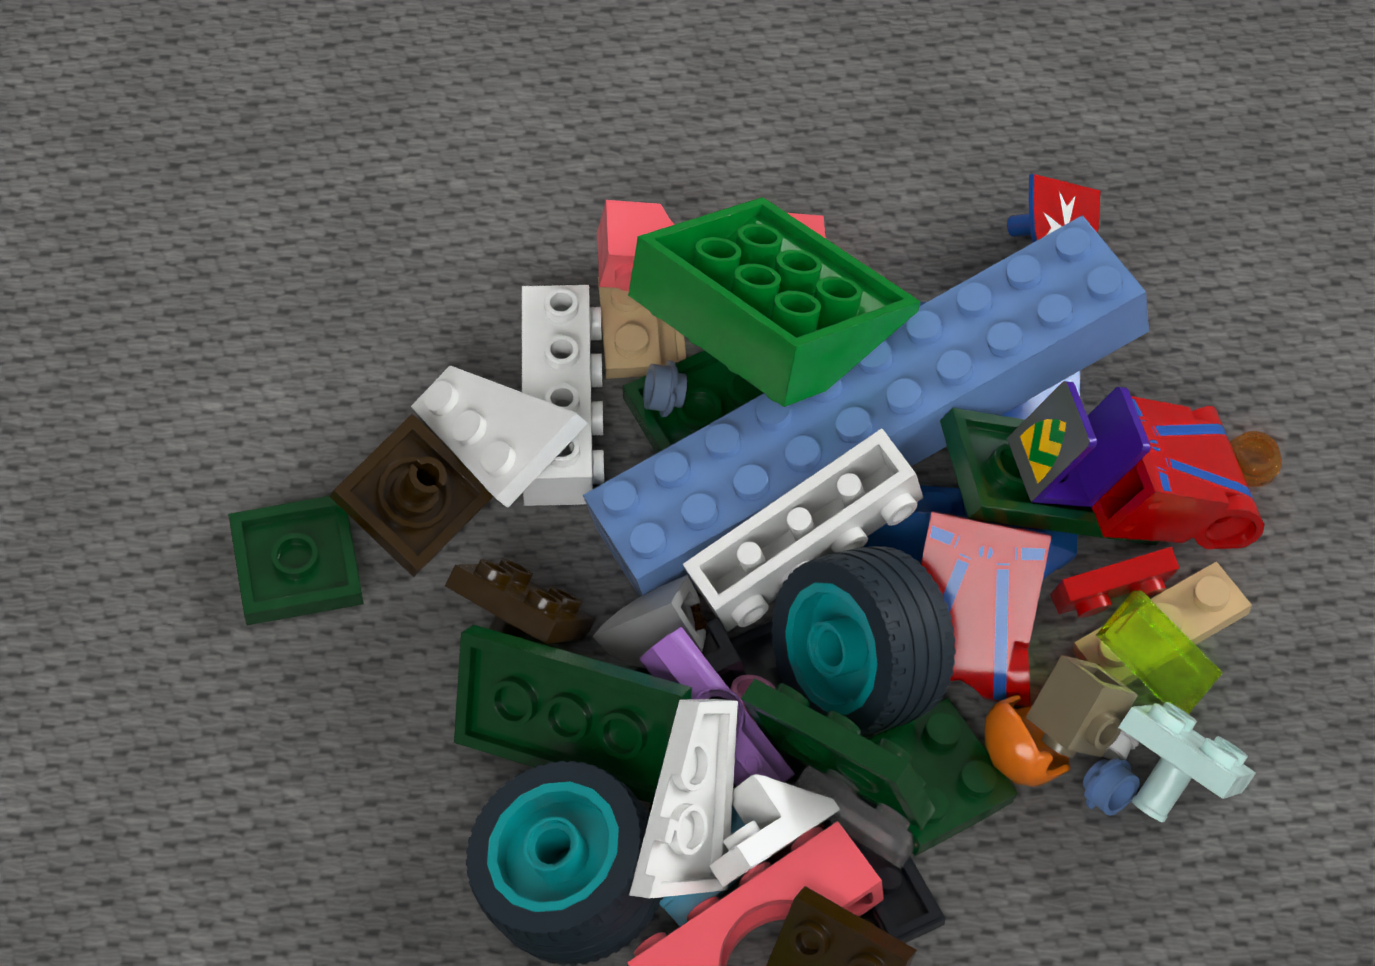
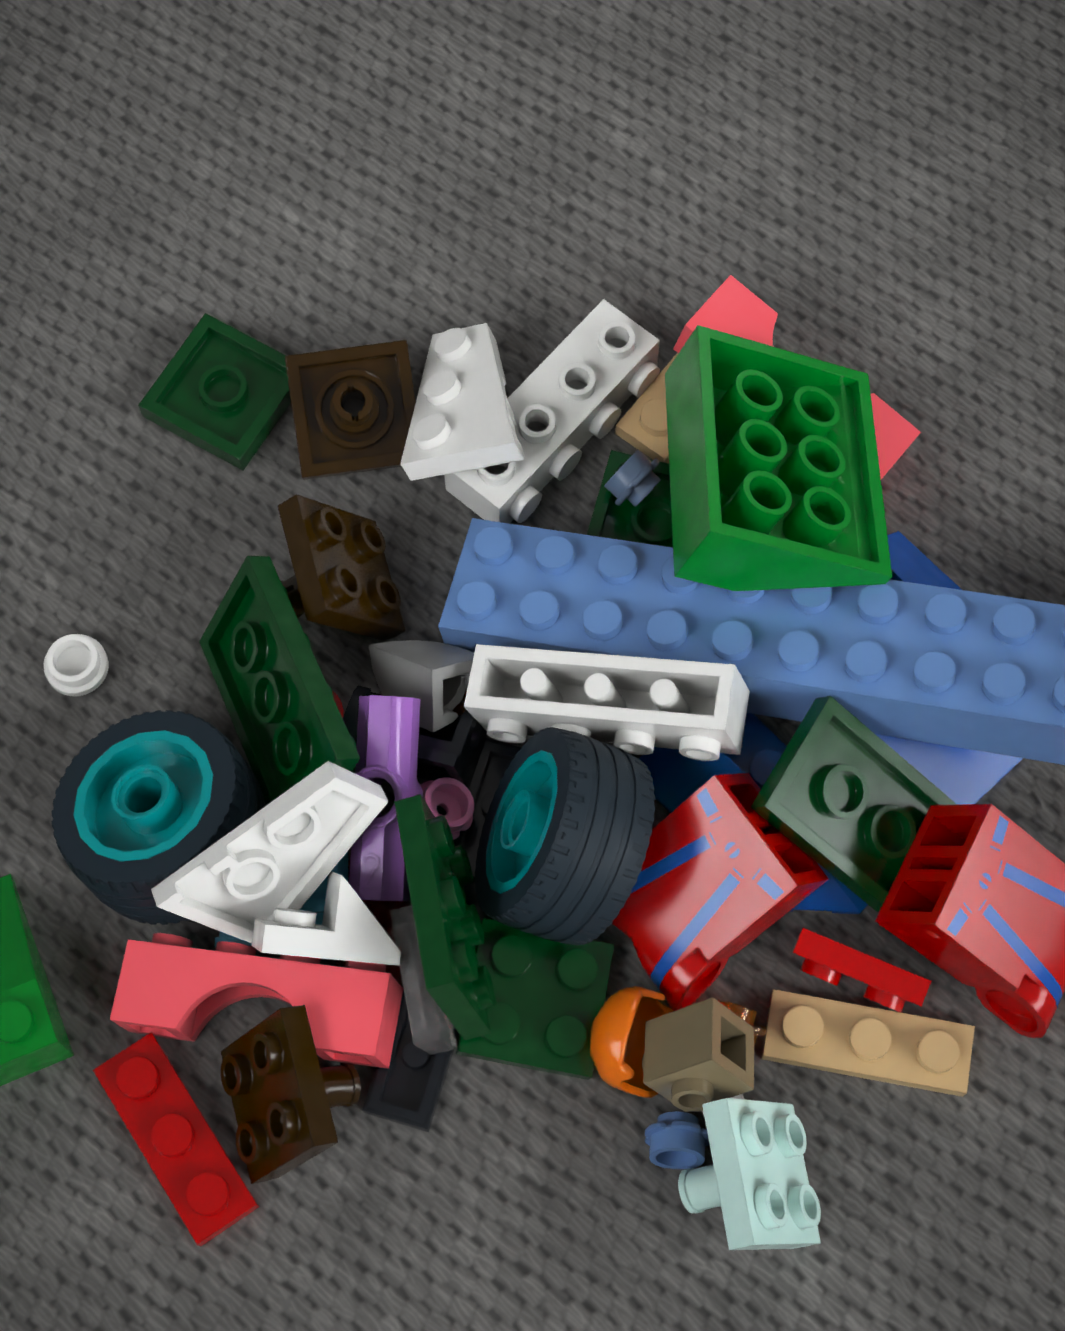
camera: 45 degrees right, 10 degrees up
(379, 830) = (76, 665): none -> white plate
(1081, 448) = (922, 840): piece -> none
(1159, 652) = (829, 1066): clear neon green tile -> none

